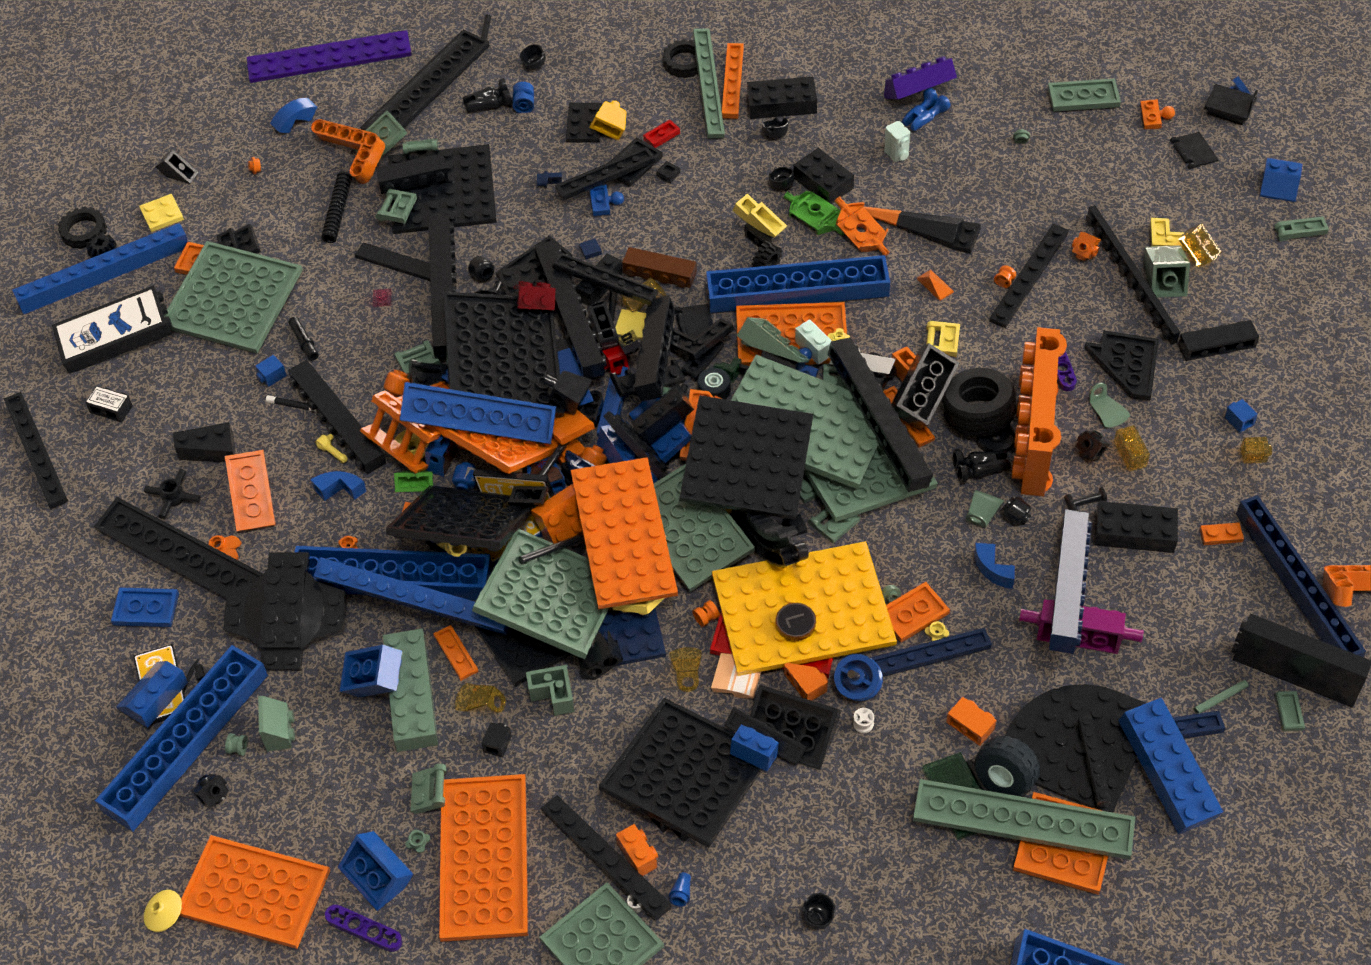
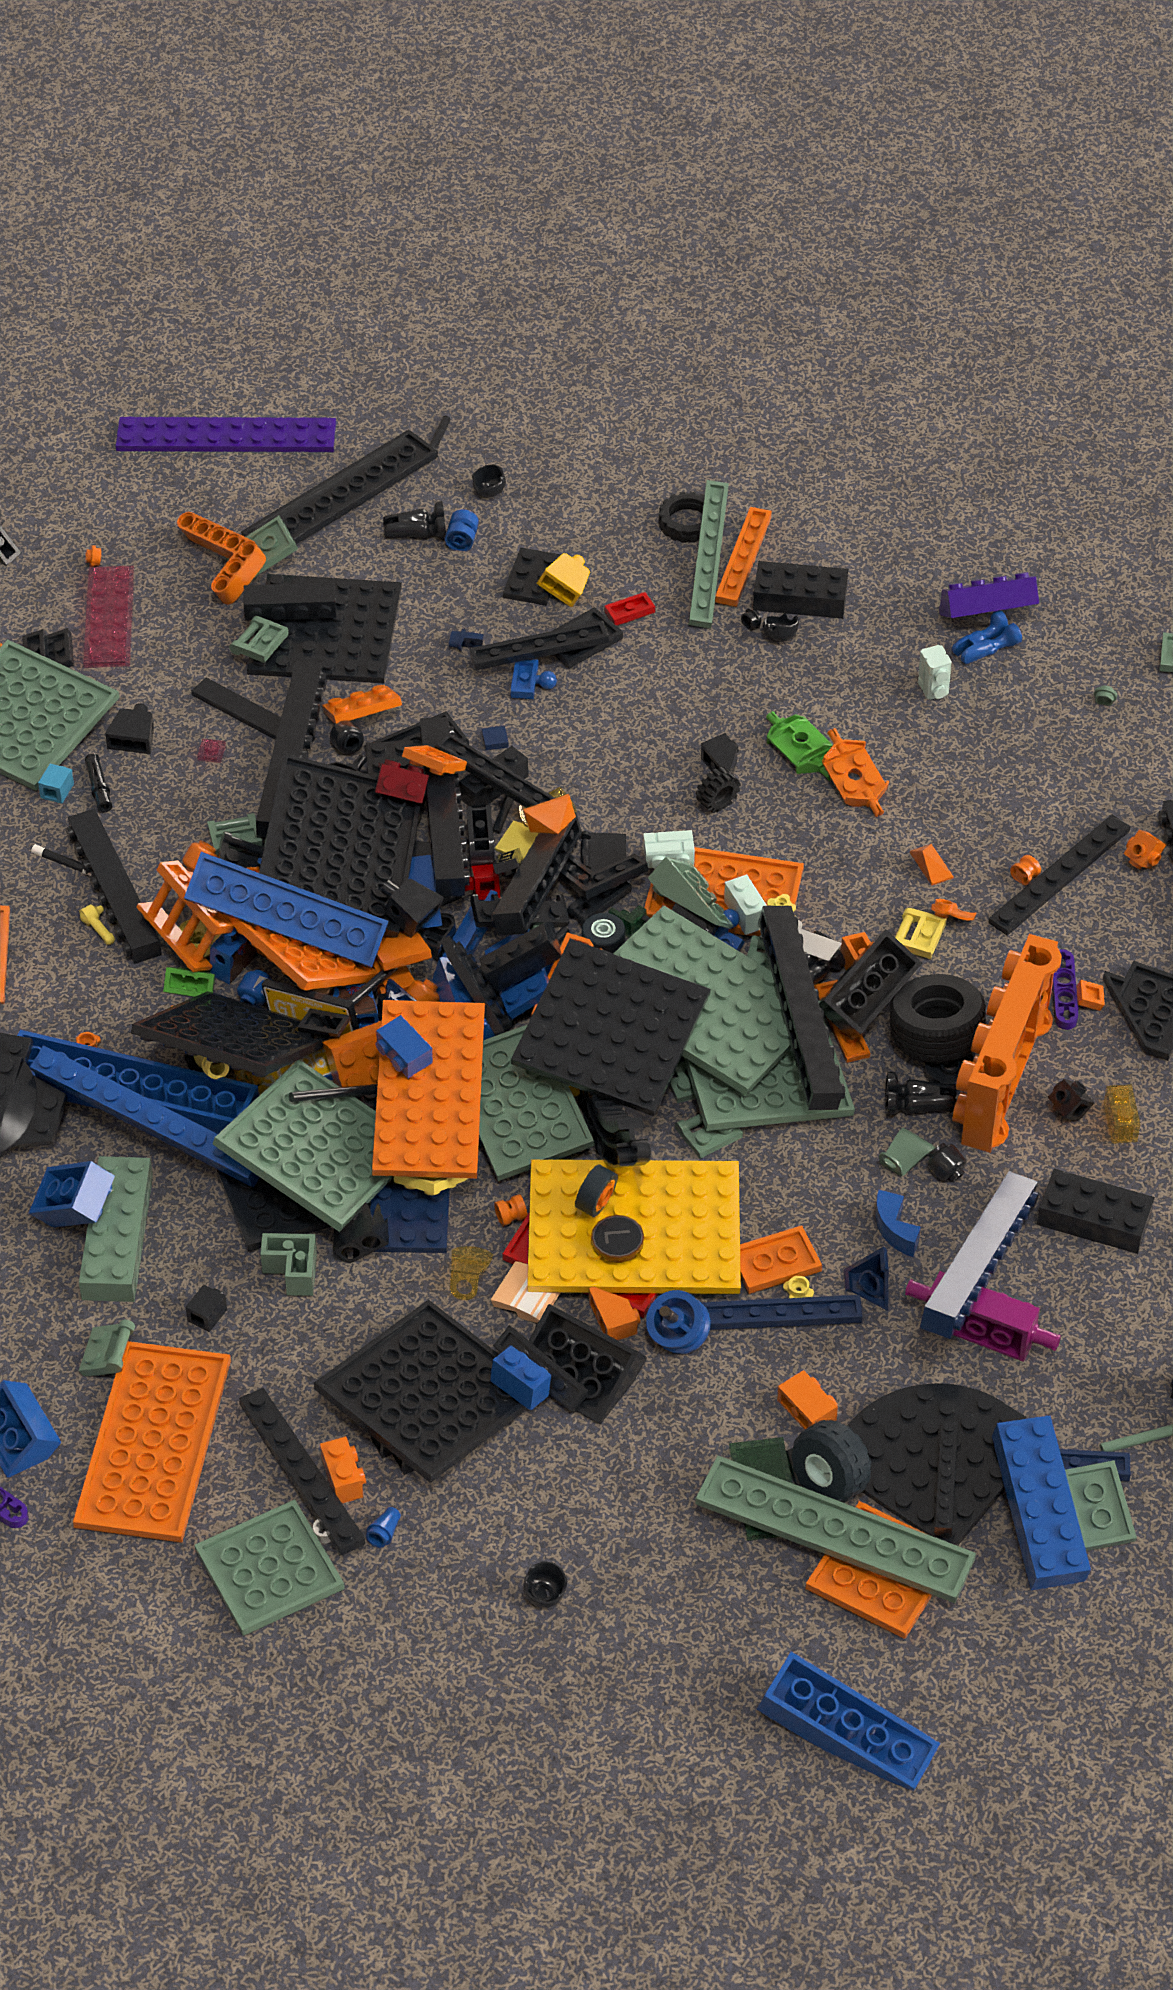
camera: 10 degrees right, 5 degrees down
(270, 371) = (46, 815): blue brick -> none
(271, 344) = (56, 783): none -> dark azure brick
(277, 209) = (109, 617): none -> clear pink plate
(297, 109) = (169, 495): blue brick -> none
(318, 293) = (131, 730): none -> black torso
(332, 482) = (87, 964): blue brick -> none
(336, 207) = (184, 627): black piece -> none
(413, 837) = (77, 1400): sand green plate -> none
(415, 146) = (307, 568): sand green plate -> none
(455, 652) = (185, 1197): orange tile -> none
(476, 696) = (195, 1252): clear yellow piece -> none
(485, 241) = (361, 704): none -> orange plate
(555, 274) = (436, 760): none -> orange plate
(598, 504) = (404, 1047): none -> blue brick
(652, 302) = (550, 815): none -> orange slope
(659, 267) = (576, 777): reddish brown brick -> none
(668, 172) = (624, 658): black plate -> none
(741, 308) = (673, 844): none -> light aqua brick
(751, 124) = (751, 617): none -> black plate
(759, 216) = (721, 734): light yellow slope -> none
(771, 587) = (596, 1190): none -> black wheel
(782, 178) = (769, 692): black hair -> none
(798, 283) = (755, 828): blue brick -> none
(798, 523) = (656, 1127): black plate -> none
(823, 175) = (825, 699): black brick -> none
(863, 715) = (674, 1369): white wheel -> none
(891, 593) = (752, 1230): sand green plate -> none
(944, 230) = (966, 798): black plate -> none
(957, 317) = (944, 908): none -> orange plate
(988, 612) = (870, 1278): none -> dark blue slope
(1073, 503) = (1024, 1168): black piece -> none
(1080, 362) = (1090, 995): none -> orange plate
(1107, 409) = (1108, 1061): sand green piece -> none
(1213, 756) = (1100, 1505): none -> sand green plate

